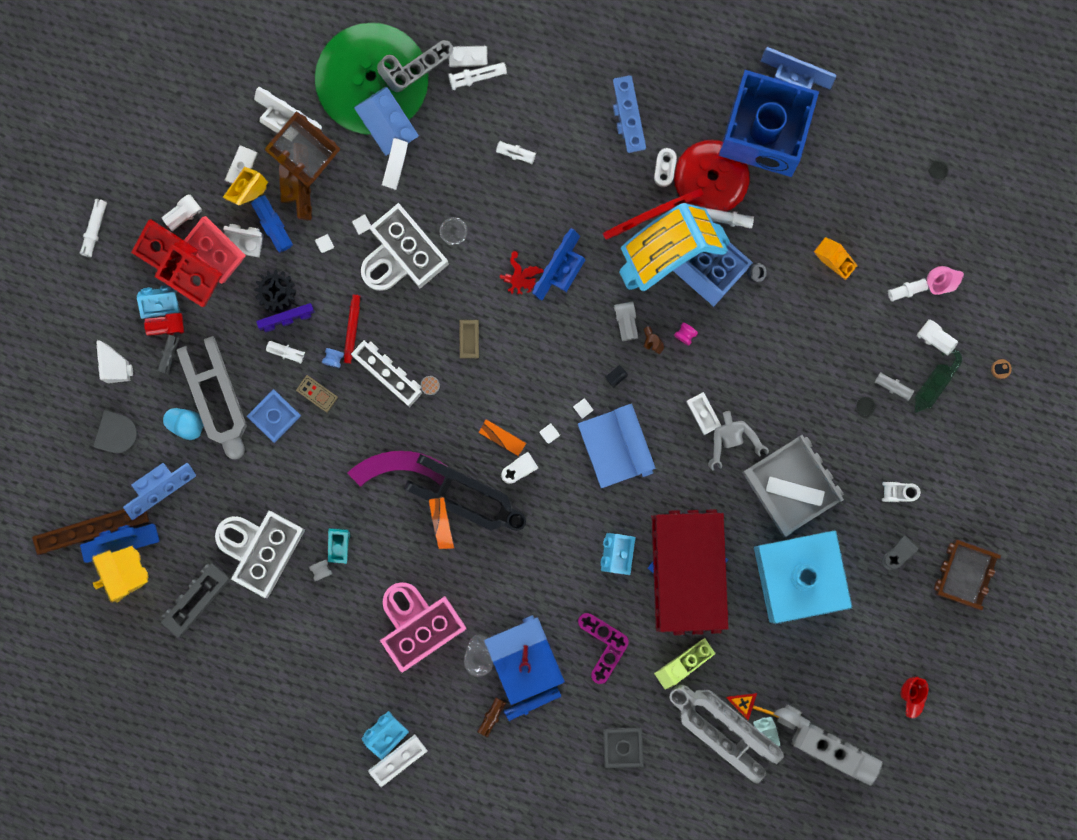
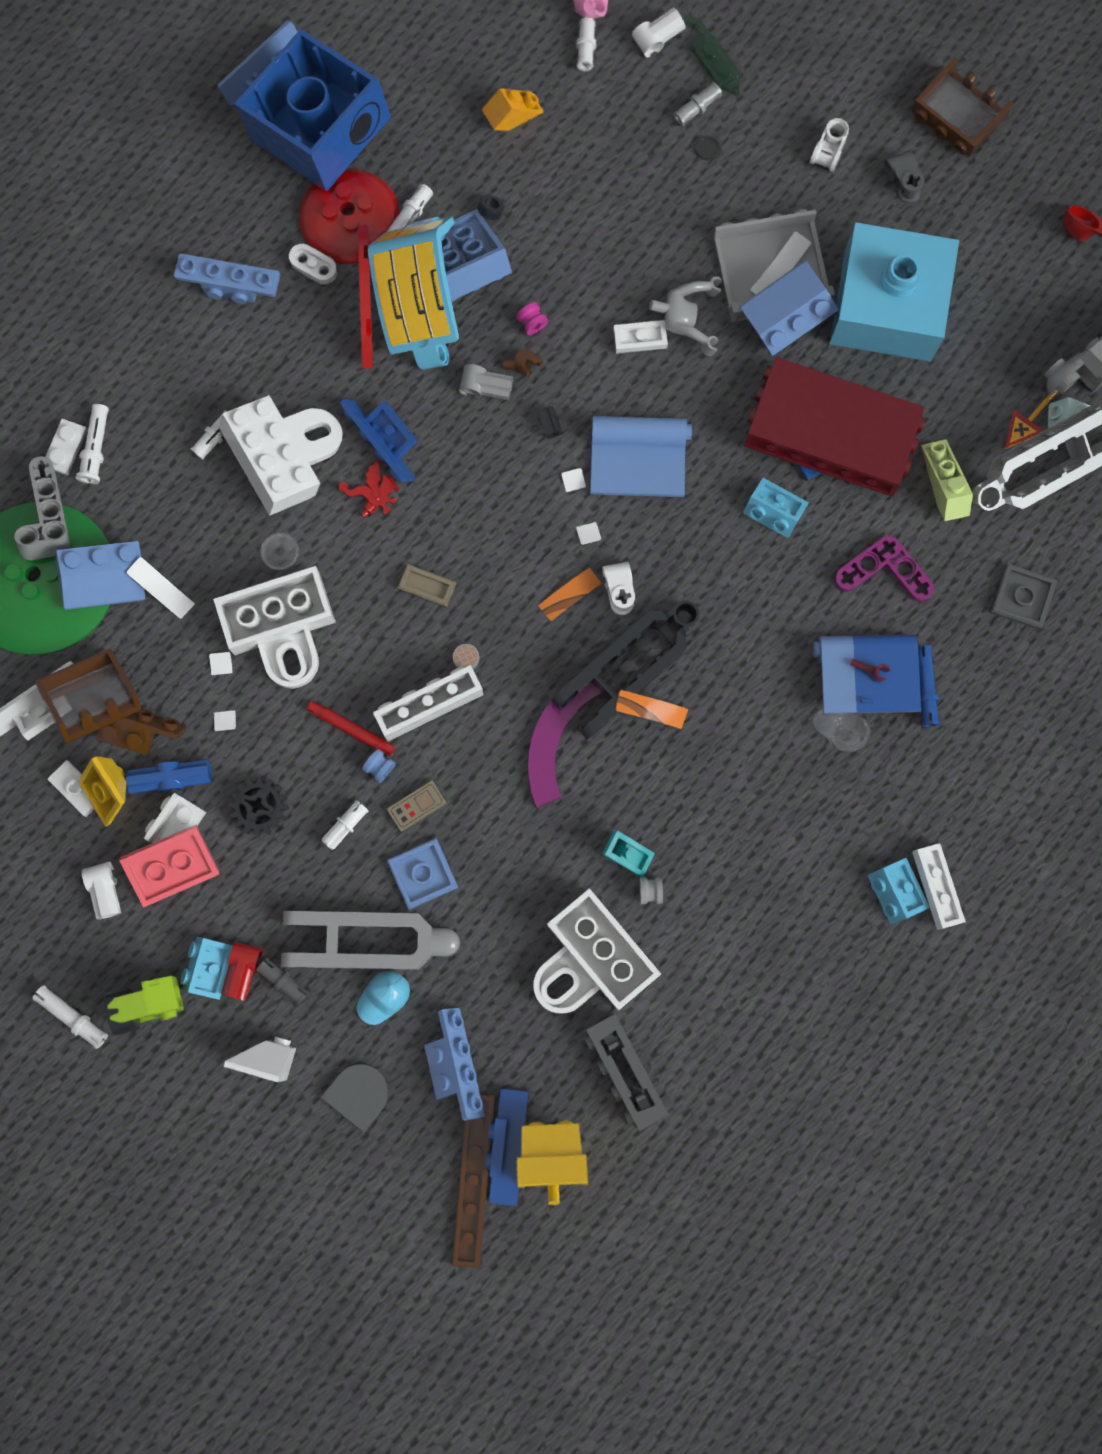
camera: 60 degrees left, 5 degrees down
(125, 279) = (128, 1010): none -> lime piece
(176, 263) = (166, 919): red bracket -> none
(286, 318) = (300, 806): dark purple plate -> none
(419, 628) = (776, 789): bright pink brick -> none
(491, 717) = (925, 744): reddish brown pin -> none
(519, 200) = (277, 452): none -> white brick
(760, 508) = (789, 307): none -> medium blue slope

